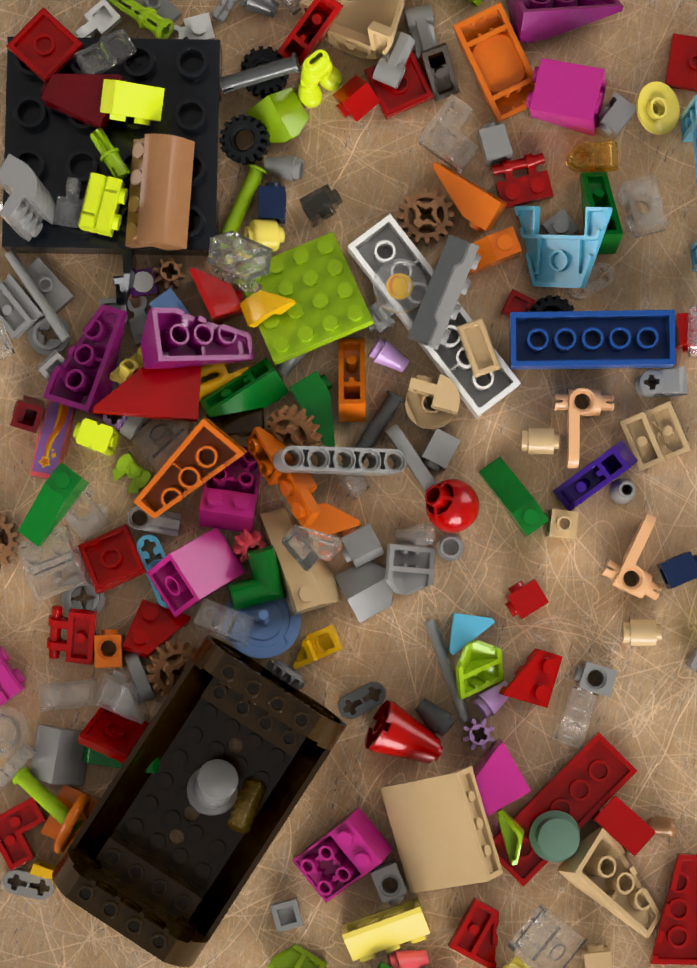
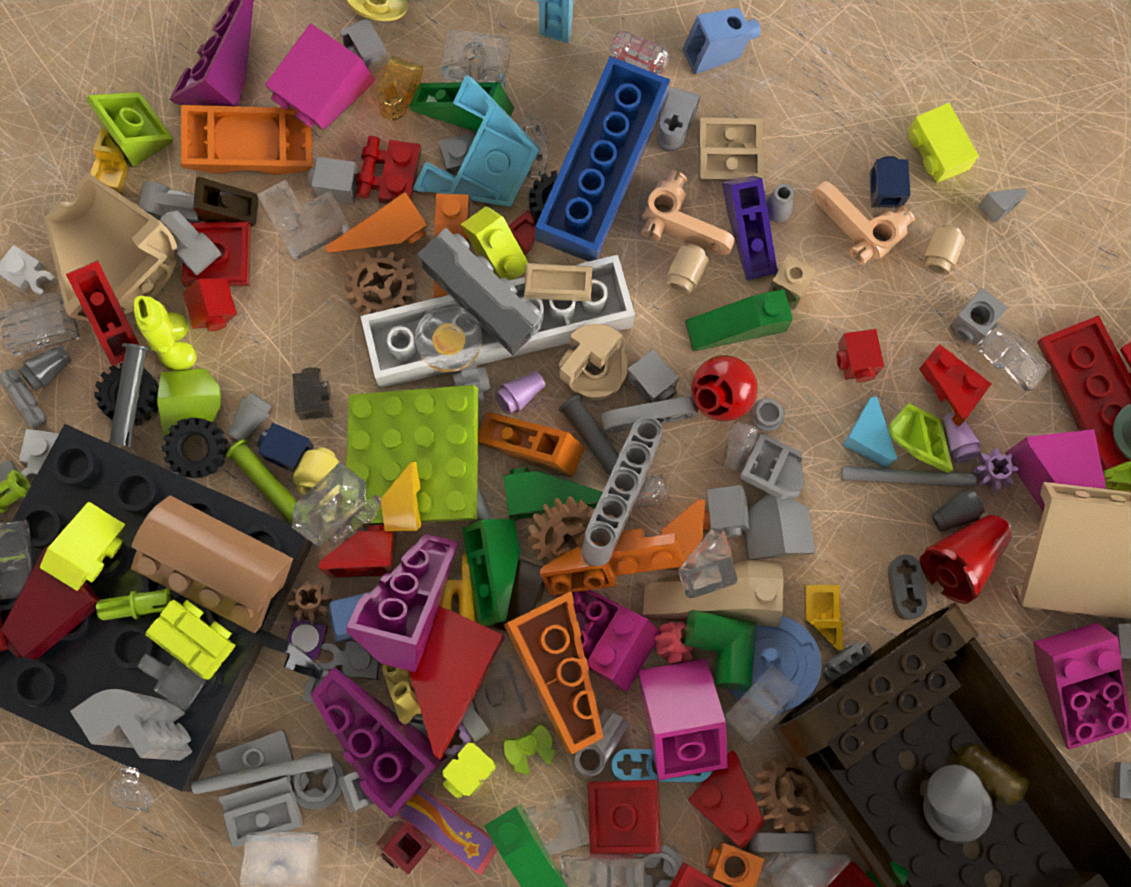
camera: 75 degrees left, 10 degrees down
(490, 288) = (496, 243): none -> neon yellow brick

